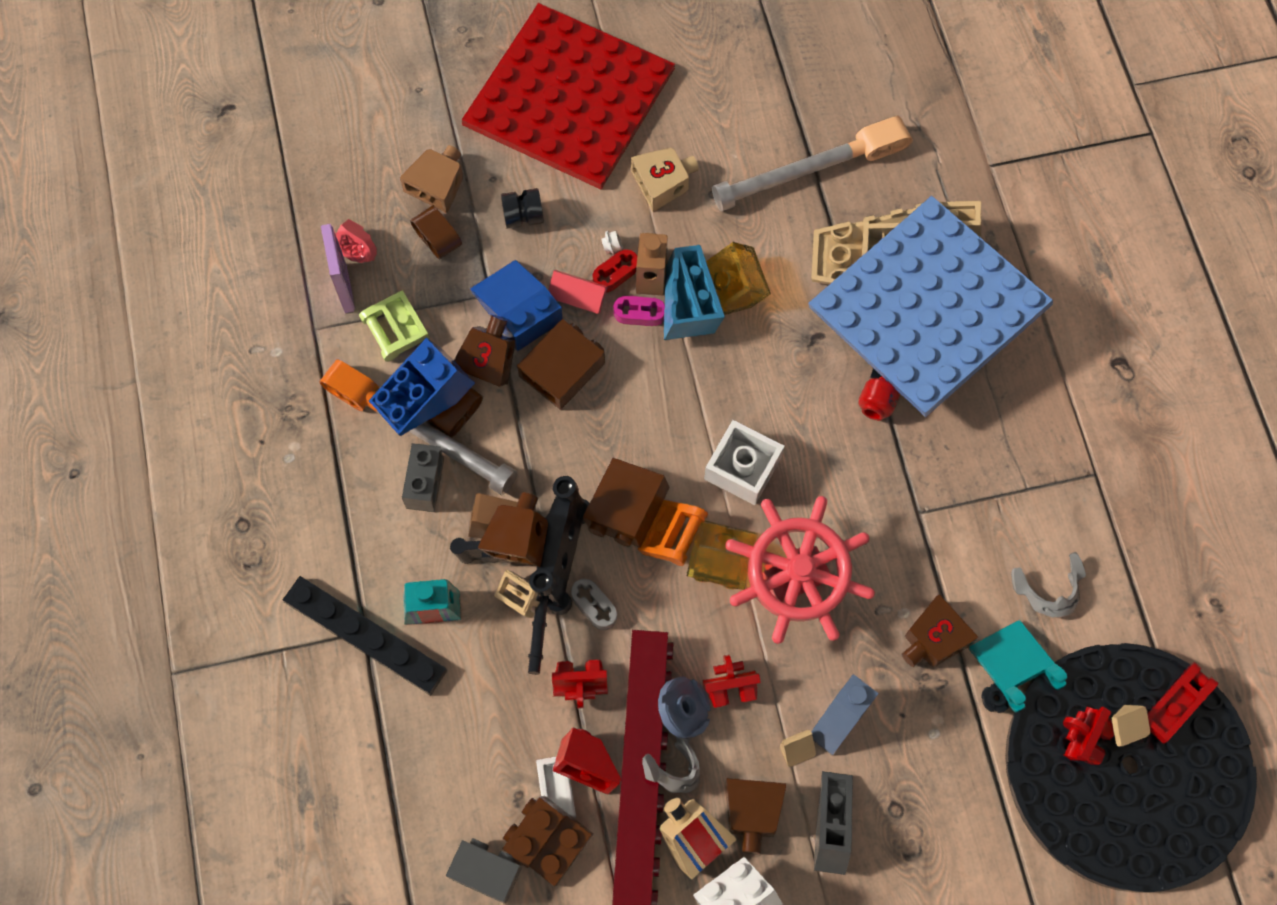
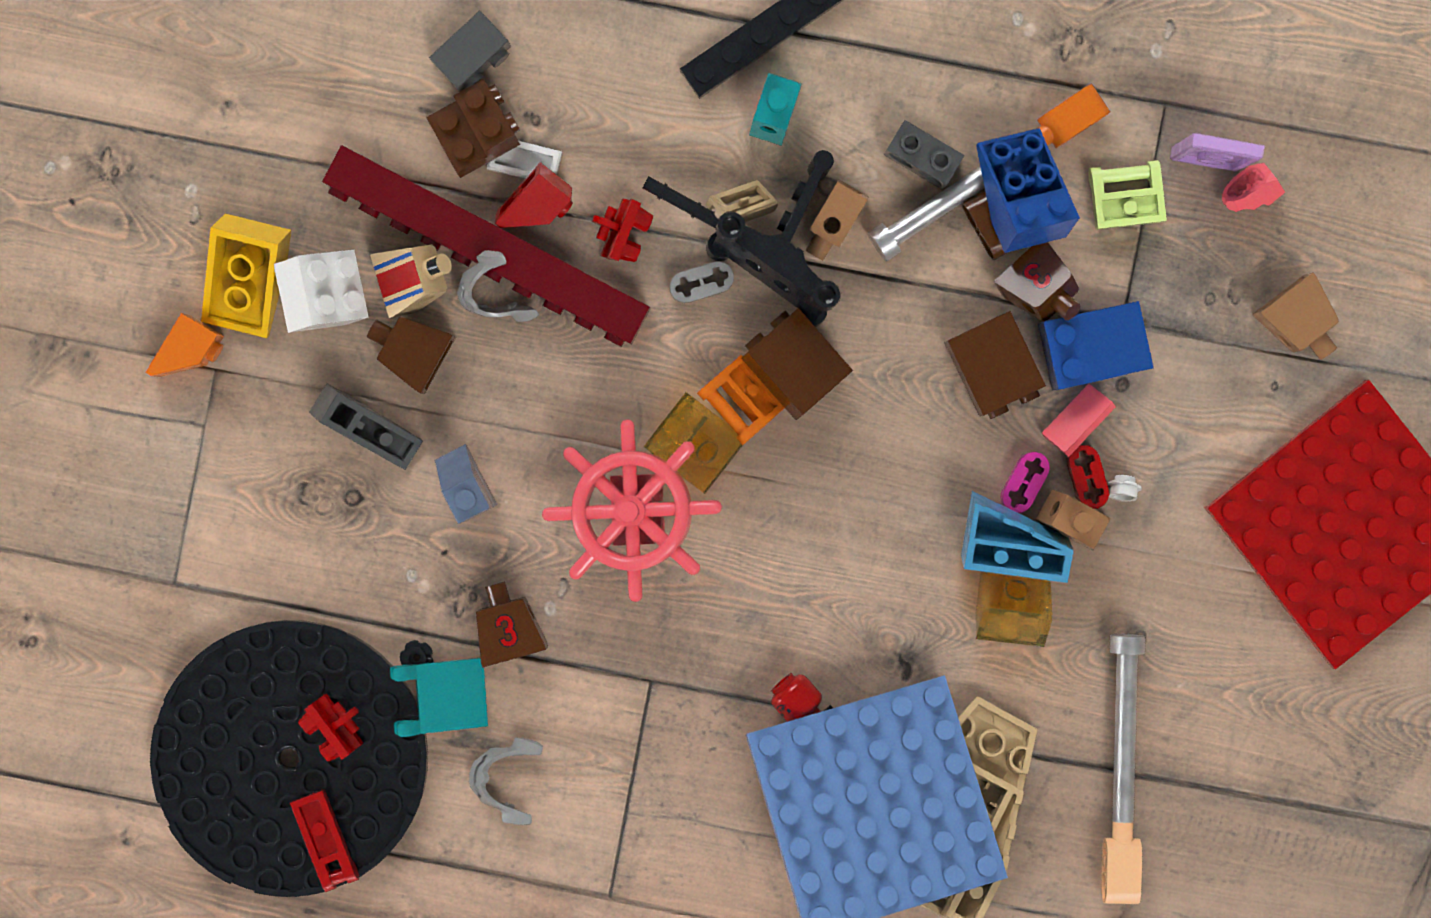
camera: 120 degrees right, 20 degrees up
(436, 232) = (1227, 289): reddish brown beam -> none
(516, 533) = (798, 222): reddish brown torso -> none
(522, 208) = (1213, 401): black wheel -> none
(662, 175) = (1185, 585): tan torso -> none
(684, 707) = (547, 340): sand blue plate -> none
(718, 686) = (555, 390): red hips -> none
(743, 462) = (785, 512): white brick -> none
(798, 748) = (455, 426): tan slope -> none
(1130, 724) = (322, 774): tan slope -> none

